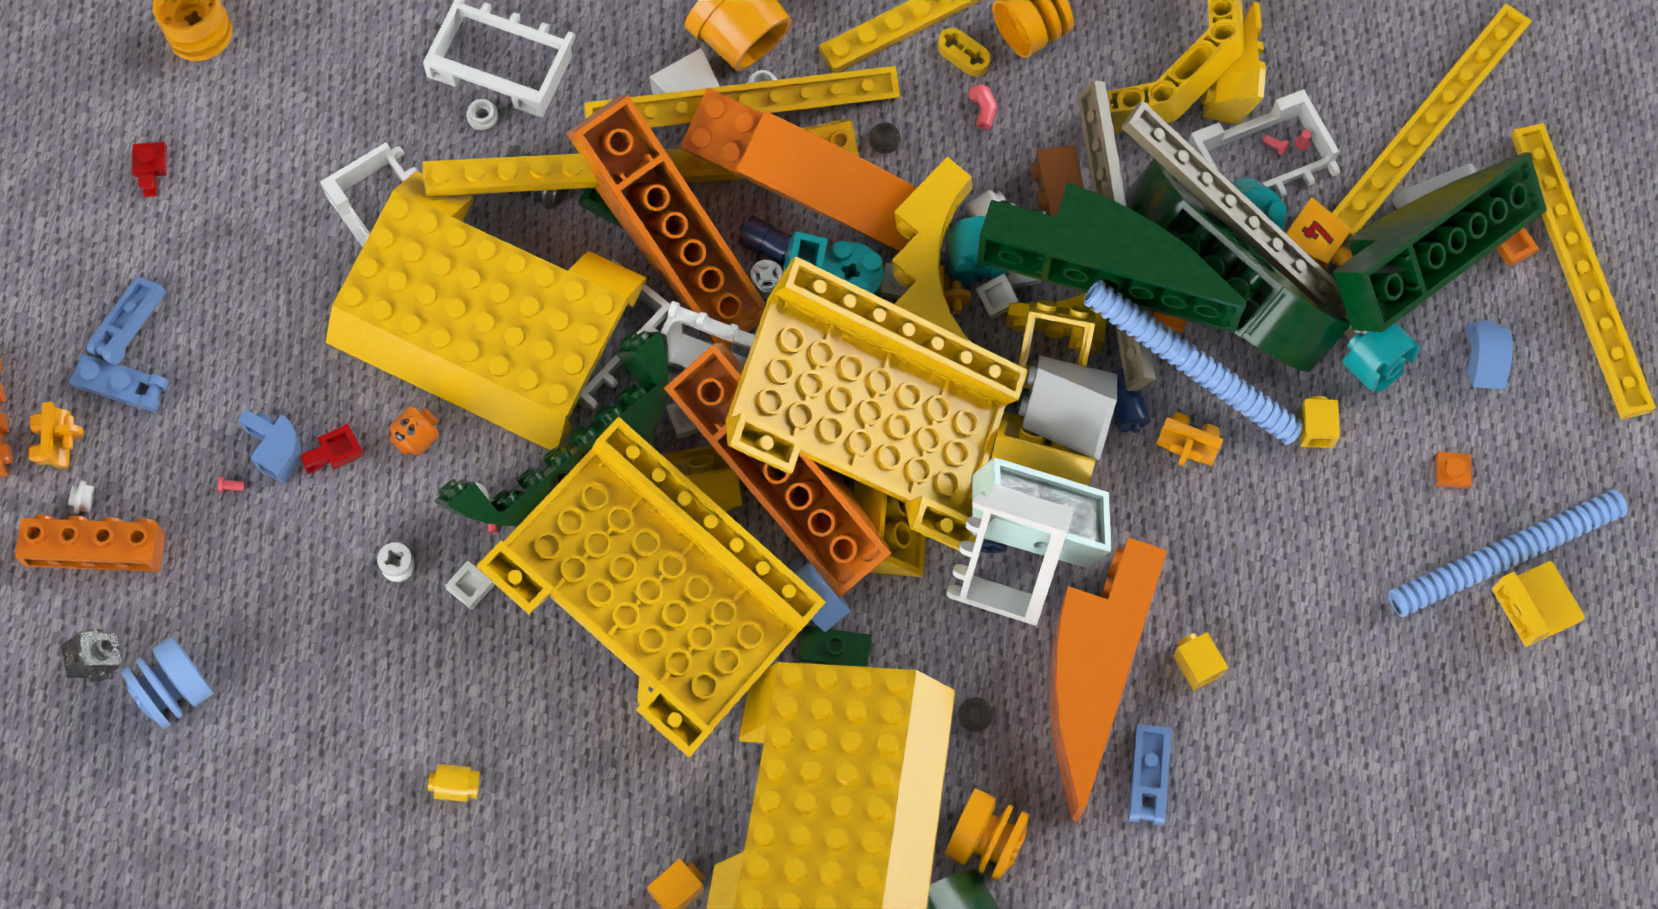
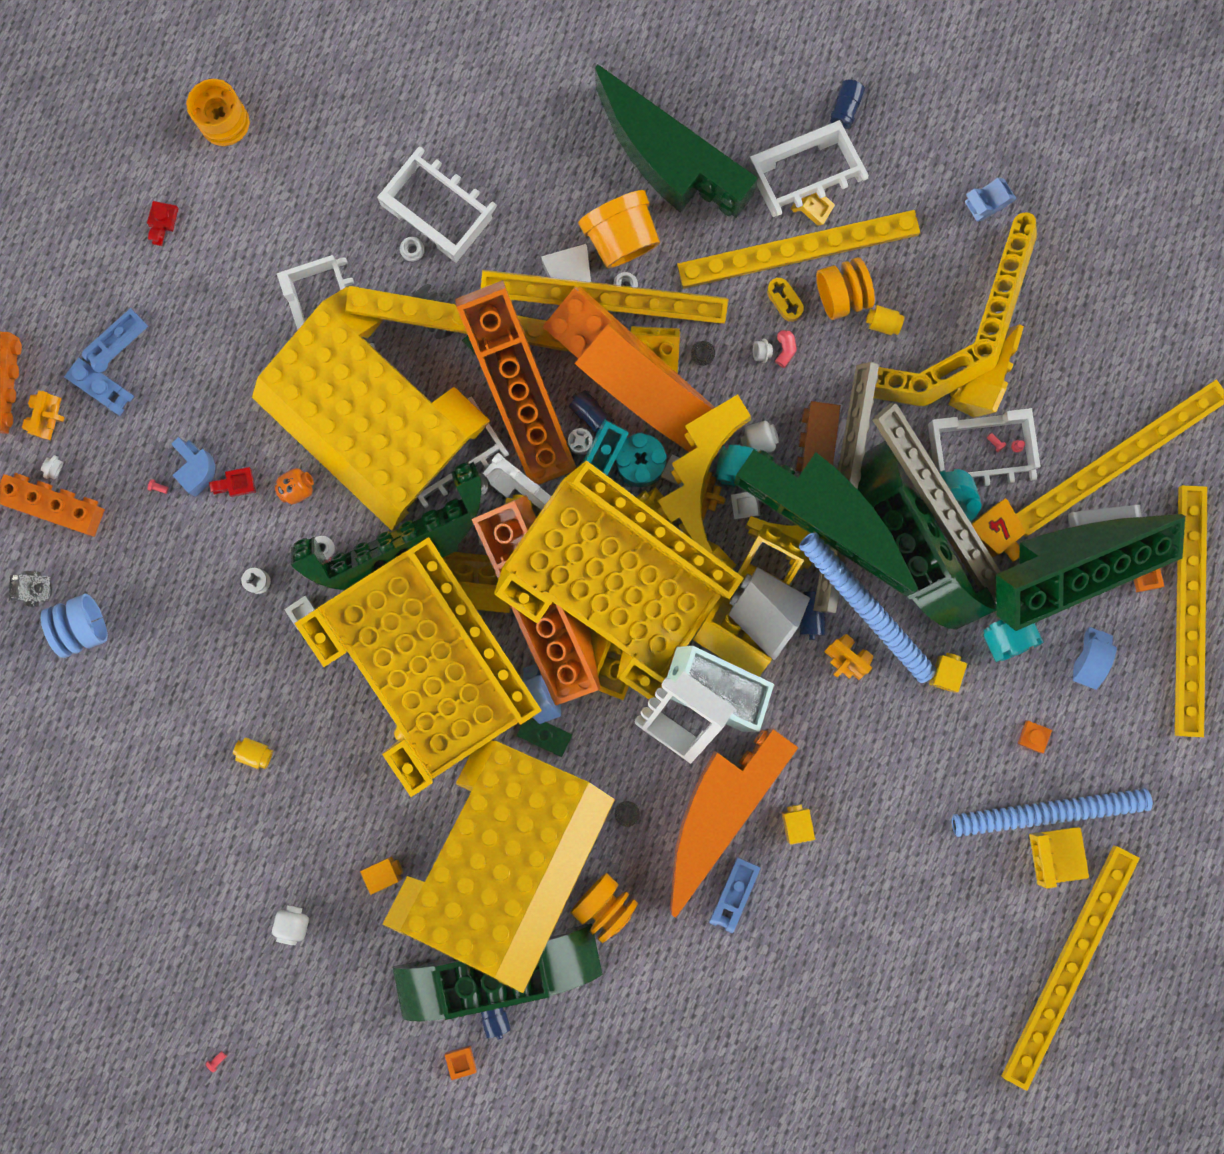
camera: 25 degrees right, 15 degrees up
(956, 115) = (762, 350): none -> white plate
(1092, 42) = (884, 320): none -> yellow brick
(1606, 739) = (1070, 967): none -> yellow plate

